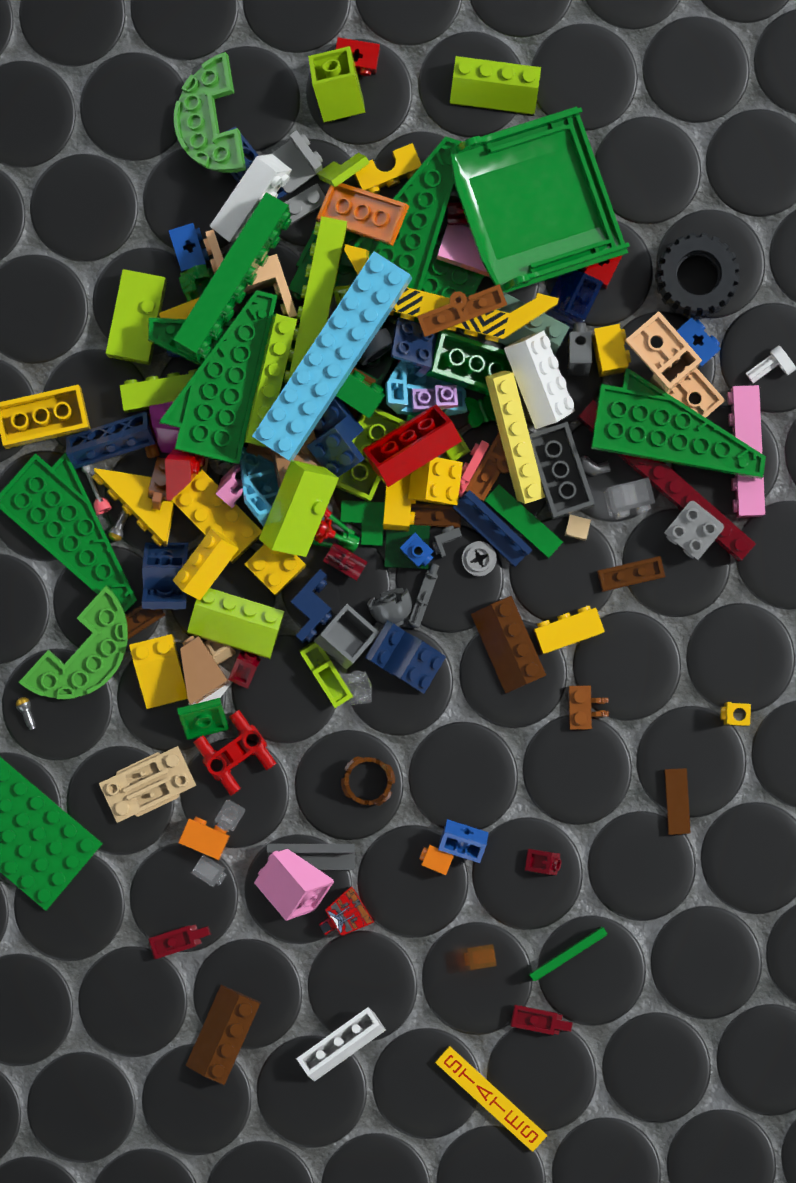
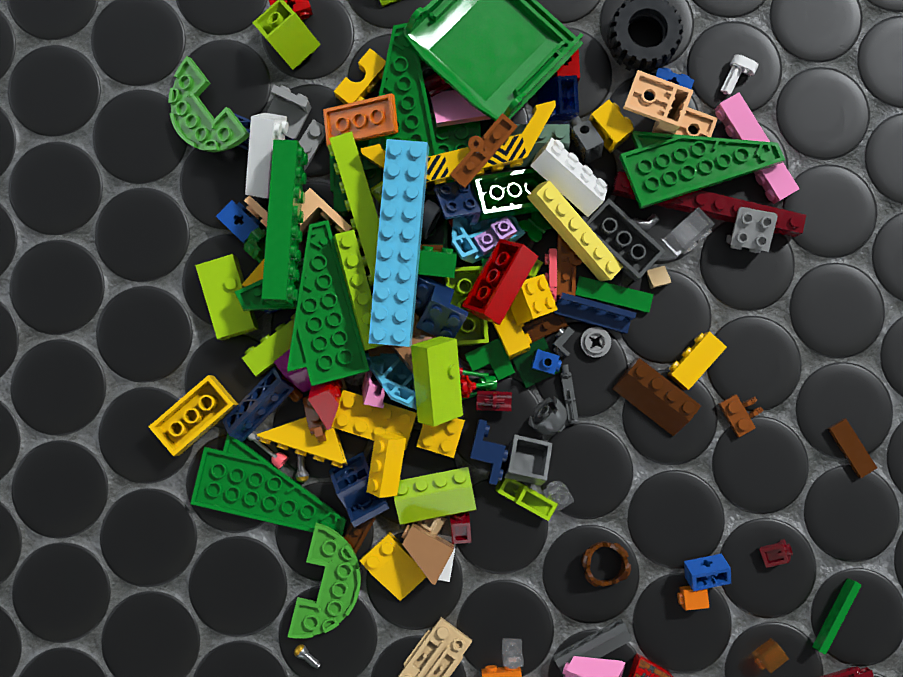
camera: 25 degrees left, 0 degrees up
(203, 718) = (449, 587): green tile -> none
(234, 752) = (489, 599): red piece -> none
(336, 174) = (324, 101): lime tile -> none
(405, 657) = (582, 451): dark blue bracket -> none
(631, 574) = (718, 290): reddish brown tile -> none
(727, 713) = (855, 358): yellow bracket -> none

